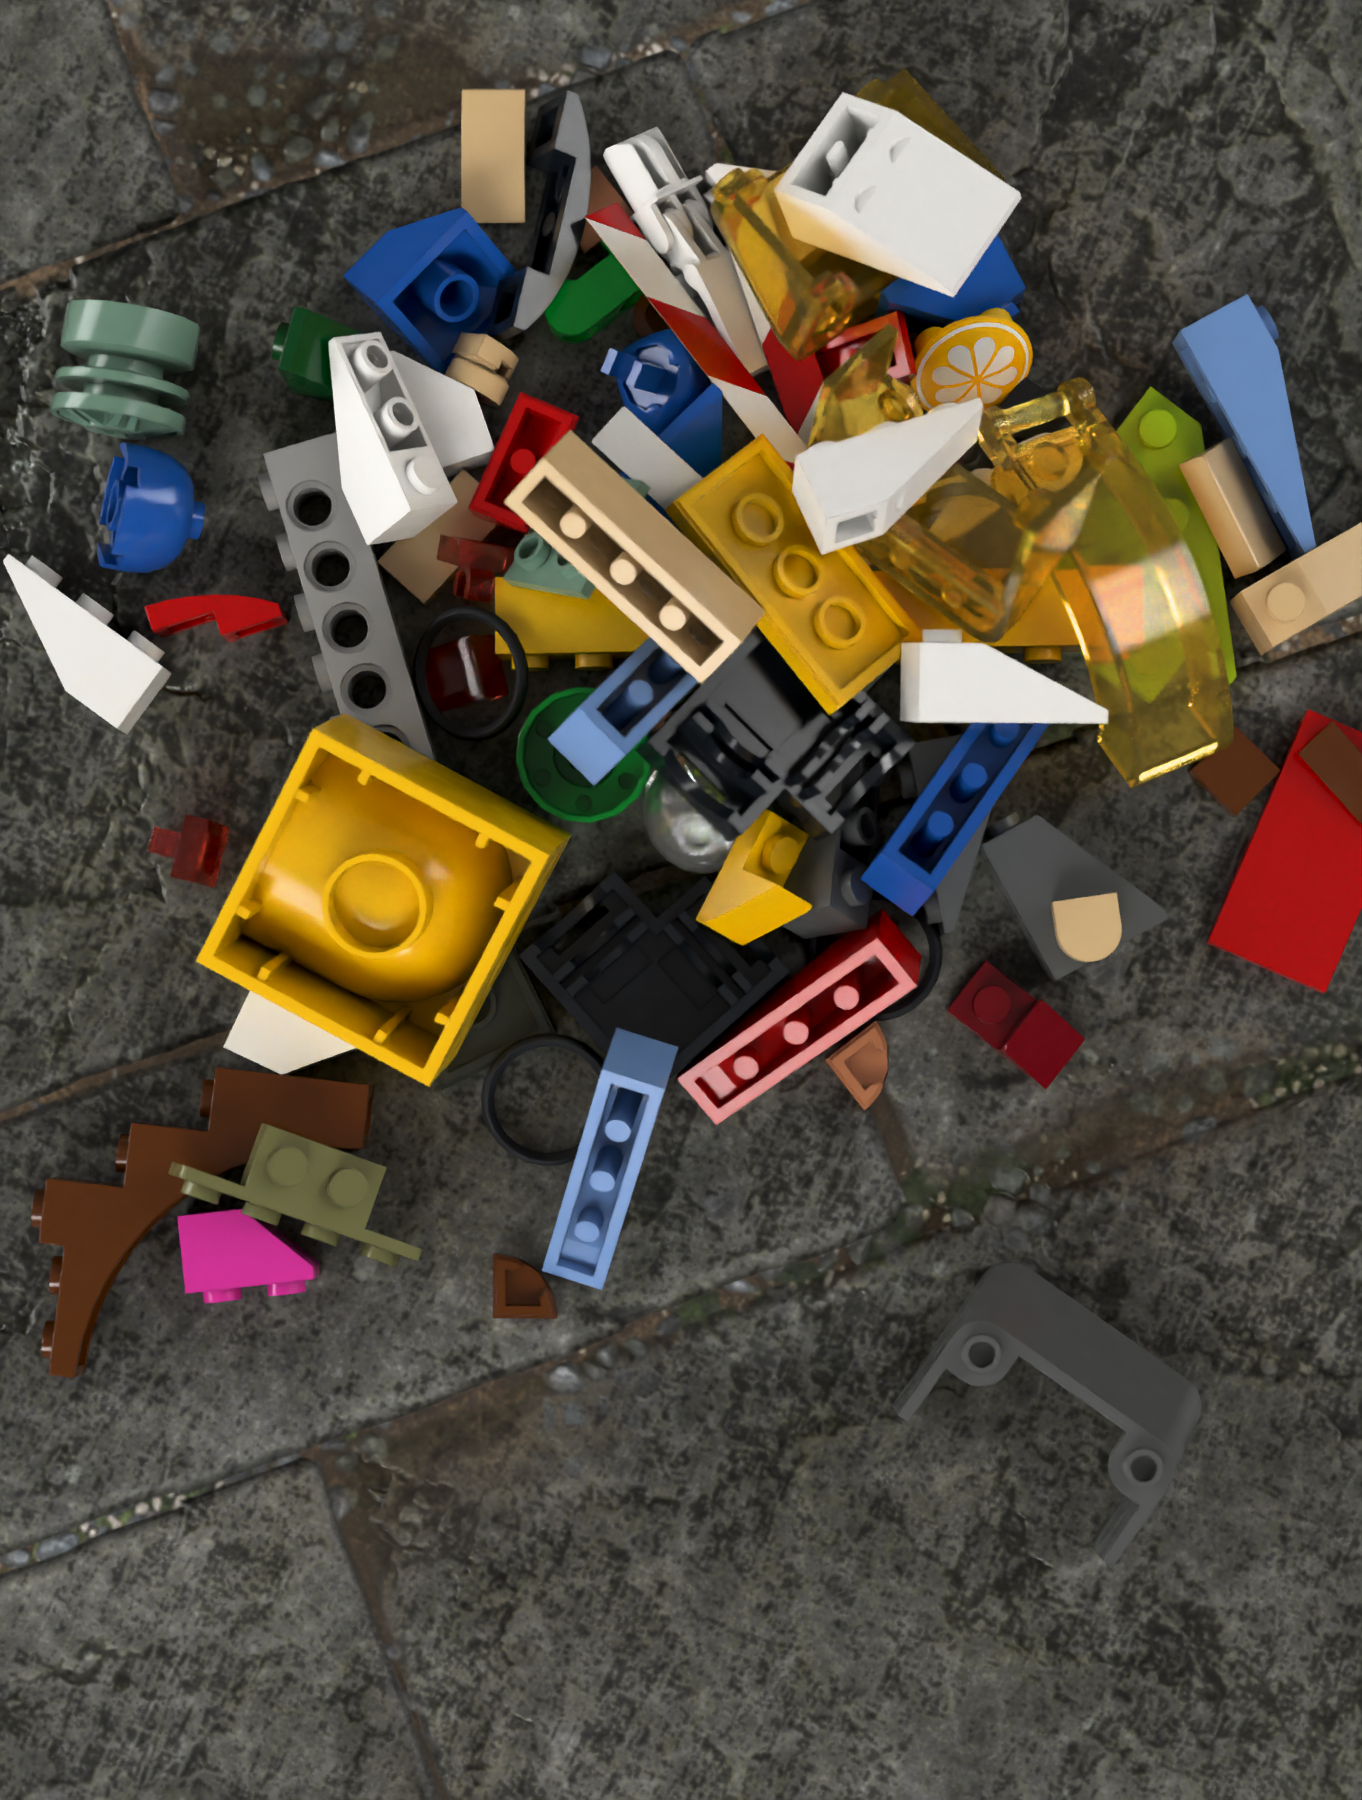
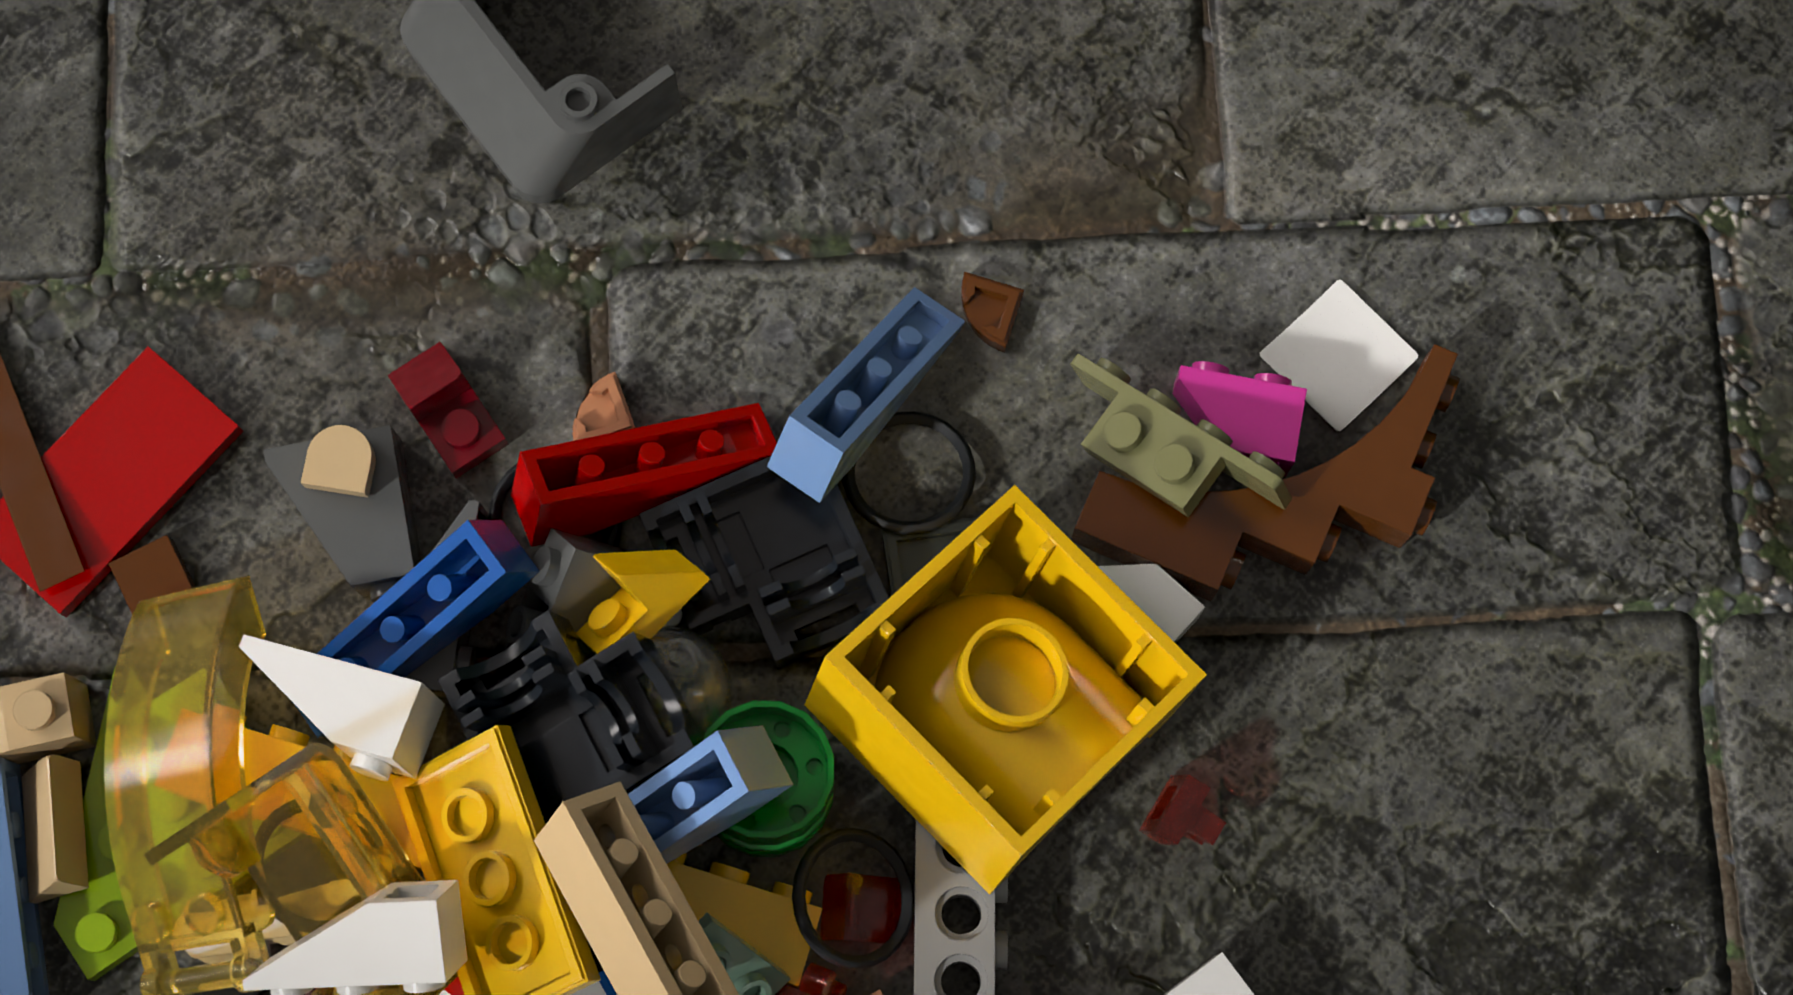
camera: 165 degrees left, 10 degrees down
(167, 1351) = (1339, 355): none -> white sticker

